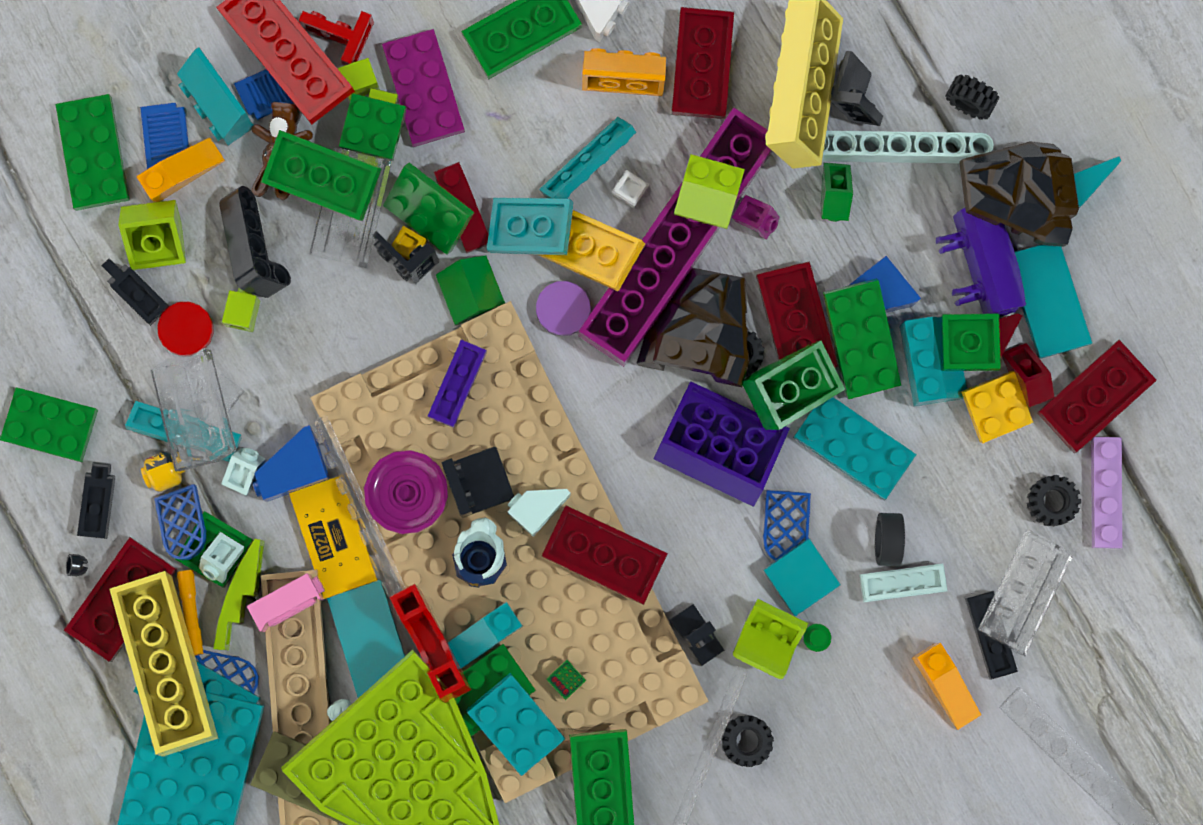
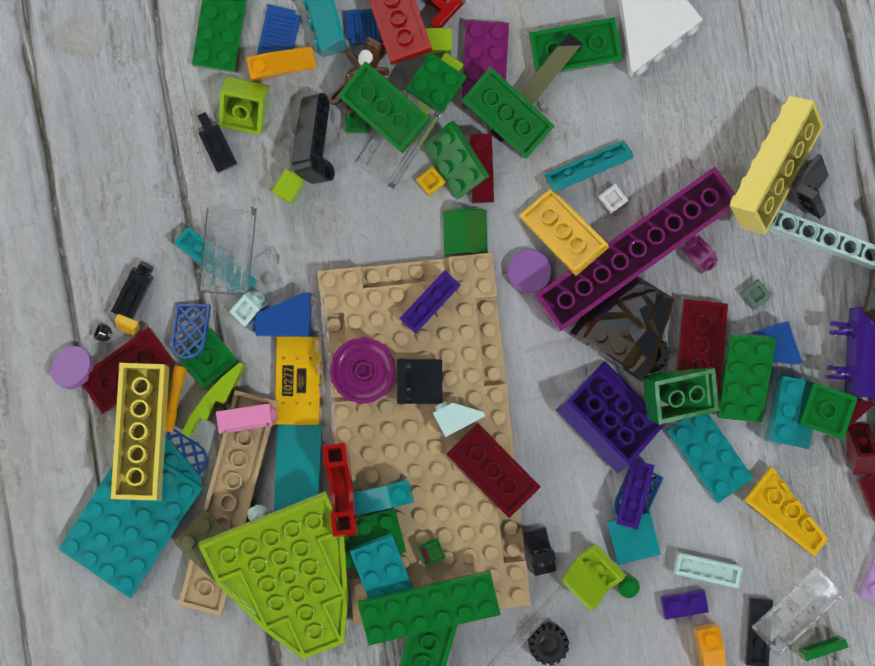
camera: 30 degrees right, 5 degrees up
(49, 424) = (118, 221): green plate -> none
(52, 619) = (71, 367): none -> medium lavender tile
(102, 544) = (127, 325): none -> yellow tile
(160, 472) = (187, 287): yellow head -> none
(185, 328) = (243, 185): red tile -> none
(220, 557) = (209, 367): light aqua bracket -> none
(294, 209) = (356, 124): none -> green tile
(420, 263) = (436, 196): black bracket -> none
(469, 132) = (507, 113): none -> green plate
(479, 554) = (401, 436): piece -> none
(491, 92) = (548, 71): none -> olive sticker
(530, 226) = (527, 201): teal plate -> none
(586, 745) = (429, 607): none -> green plate
(623, 72) = (641, 108): light orange slope -> none
(702, 63) = (703, 122): dark red plate -> none
(709, 191) = (672, 225): lime slope -> none
(783, 524) = (635, 494): none -> dark purple plate
(836, 192) = (768, 258): green slope -> none
(839, 240) = (756, 294): none -> sand green tile
(889, 539) = (710, 535): black tyre -> none
(891, 634) = (684, 604): none -> dark purple plate
(959, 477) = (780, 507): none -> yellow wing
(997, 407) = (828, 464): yellow plate -> none
(1069, 494) = (856, 555): black tyre -> none
(1072, 625) = (823, 648): none -> green tile

